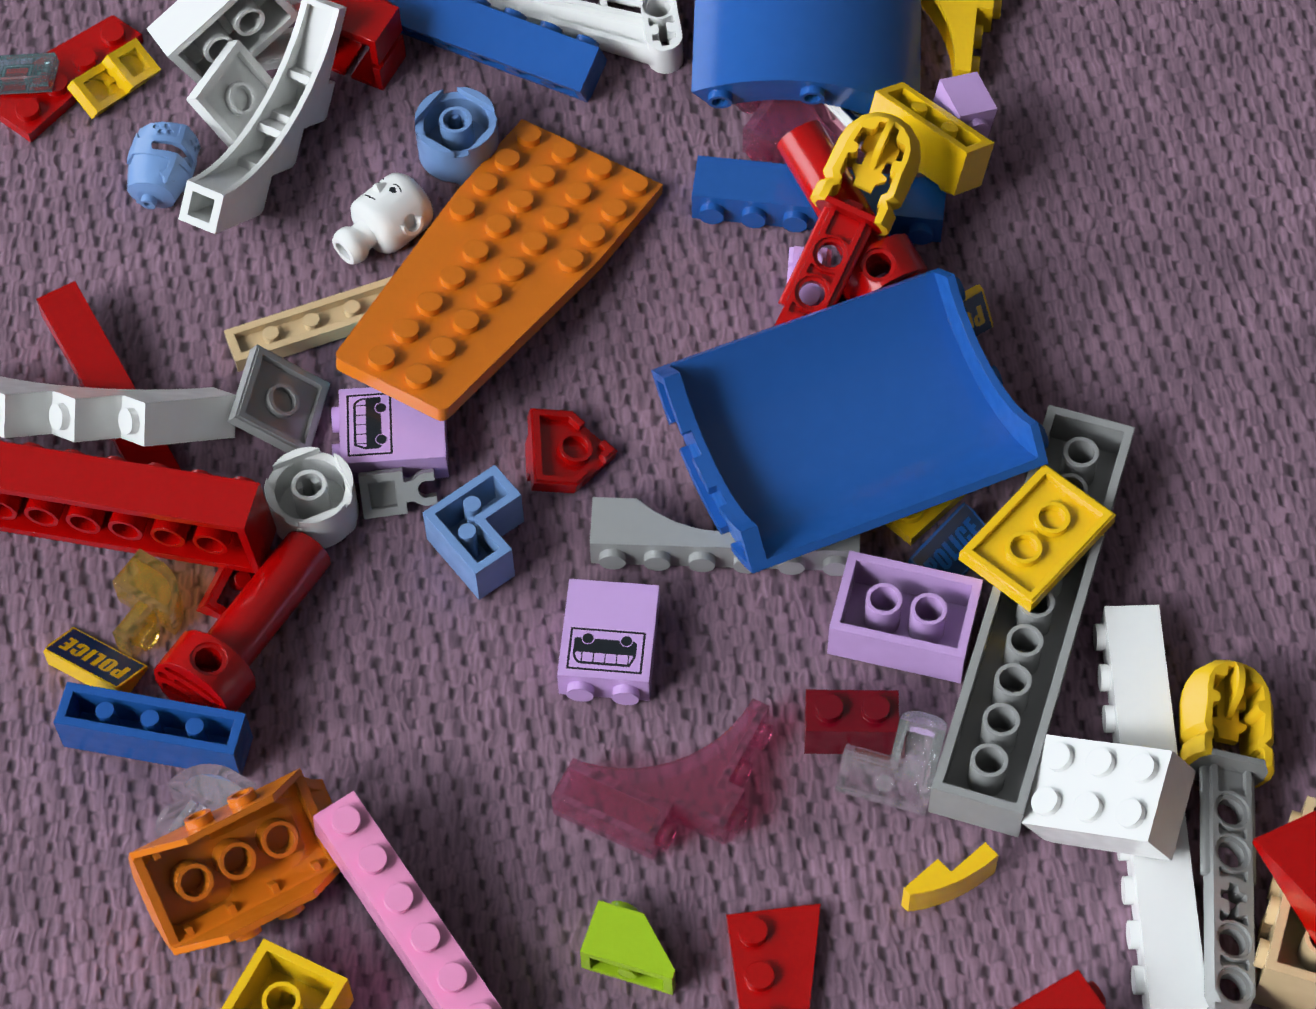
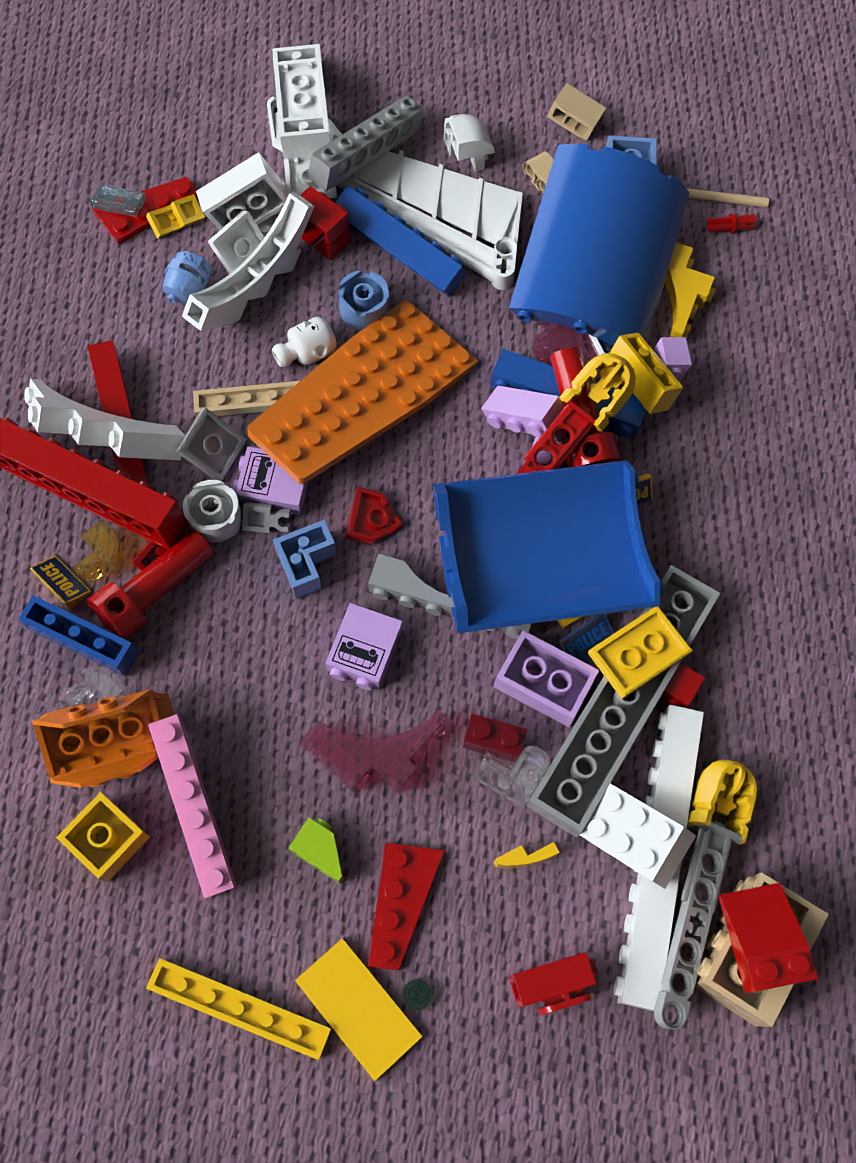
camera: 10 degrees right, 10 degrees up
(754, 237) = (521, 410): none -> lavender brick
(1115, 578) = (682, 687): none -> red brick

